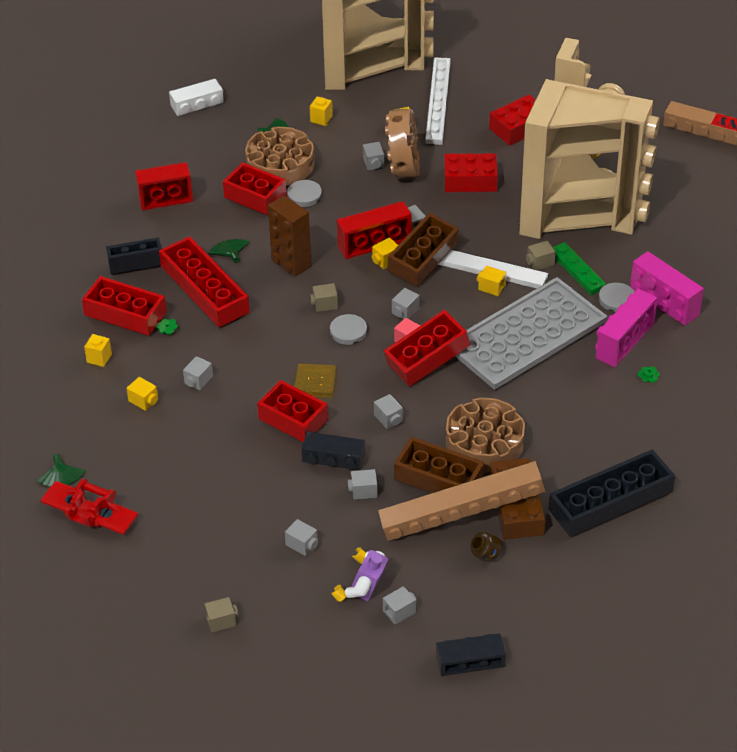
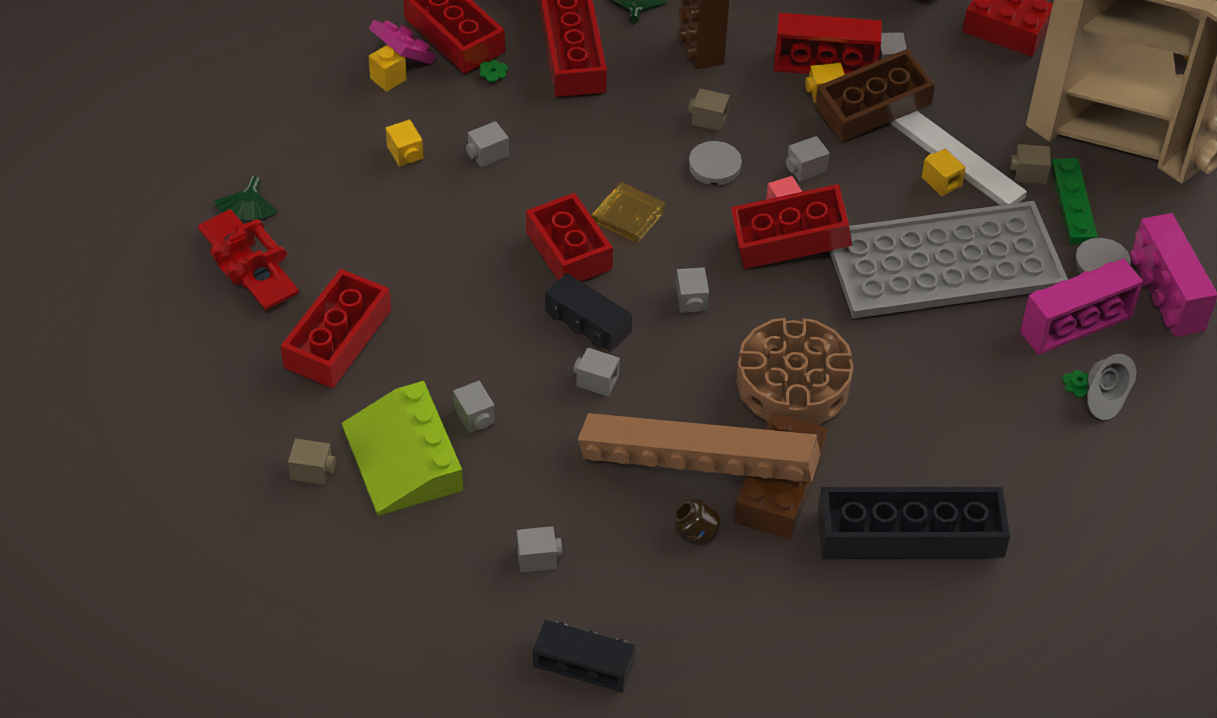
camera: 25 degrees right, 5 degrees up
(96, 328) = (402, 41): none -> dark pink plate
(181, 525) = (336, 328): none -> red brick
(274, 582) = (403, 450): none -> lime slope
(367, 577) = (518, 491): torso -> none
(434, 467) = (699, 387): reddish brown brick -> none
(669, 366) = (1109, 385): none -> light grey piece

